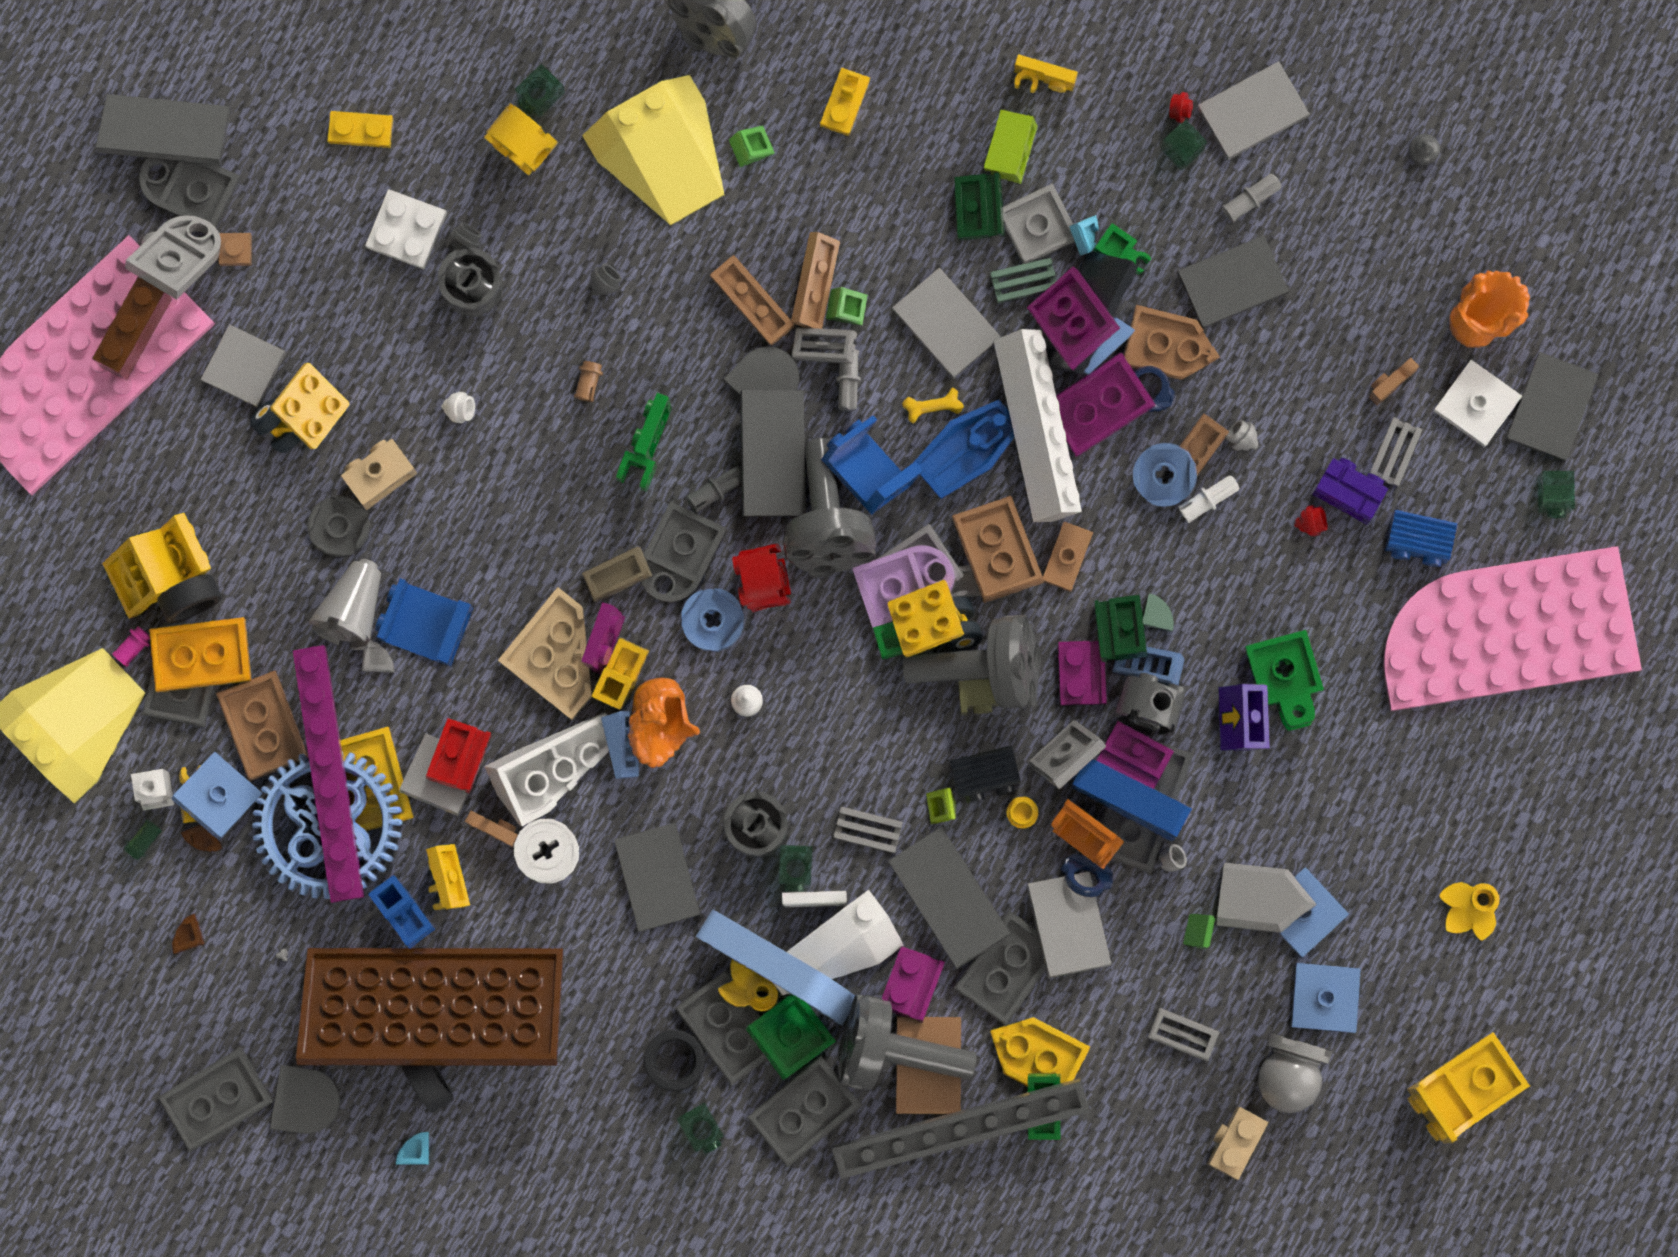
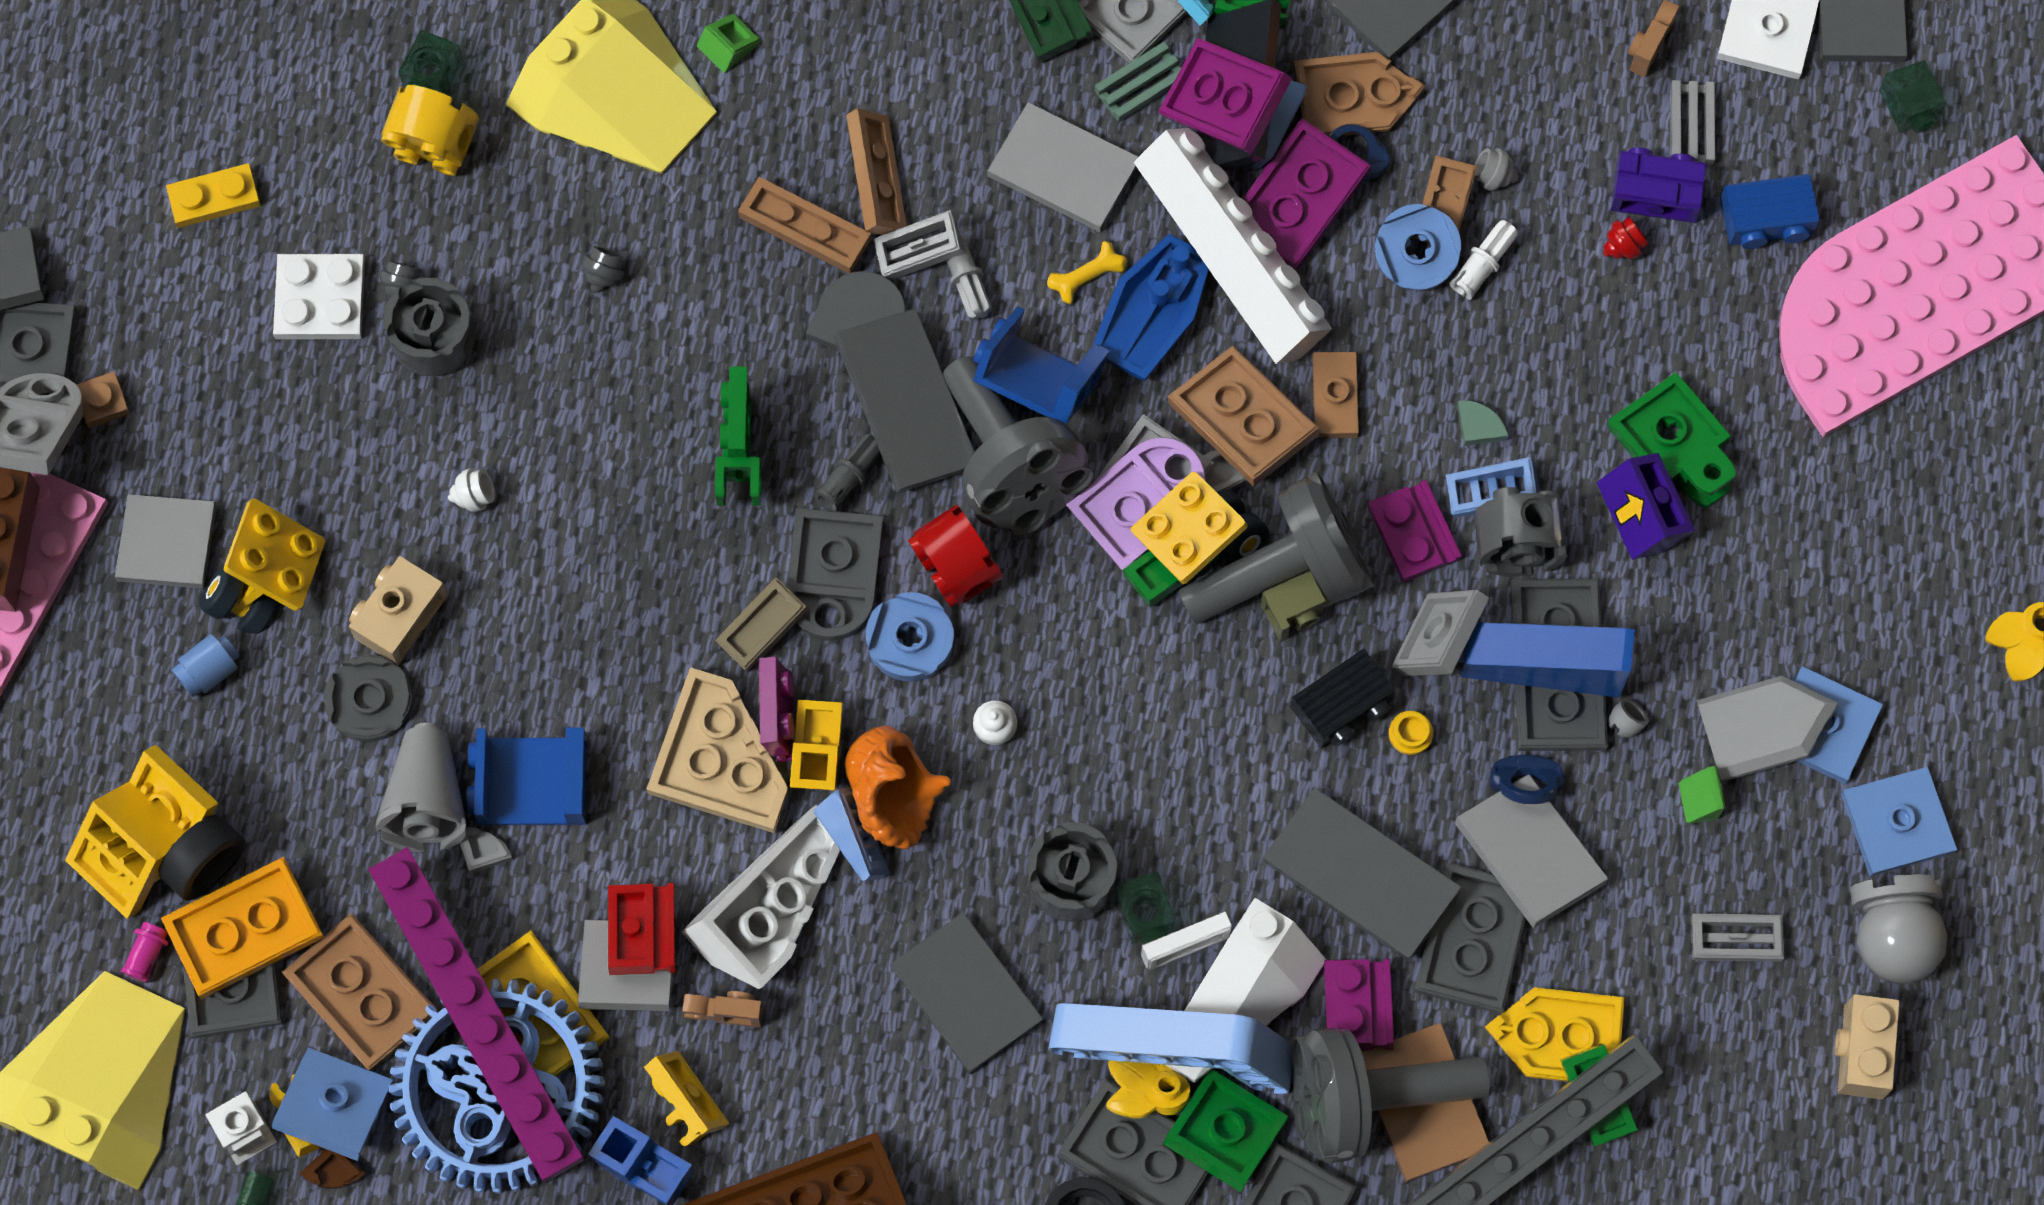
camera: 25 degrees left, 10 degrees down
(239, 464) = (206, 664): none -> medium blue brick
(529, 846) = (797, 987): white piece -> none
(588, 381) = (629, 394): medium nougat pin -> none
(846, 306) = (927, 191): bright green slope -> none
(862, 828) = (1215, 812): light grey tile -> none
(941, 806) = (1302, 762): lime slope -> none
(1086, 834) = (1506, 725): orange hinge -> none
(1121, 628) = (1442, 455): dark green plate -> none
(1135, 755) = (1527, 598): magenta plate -> none

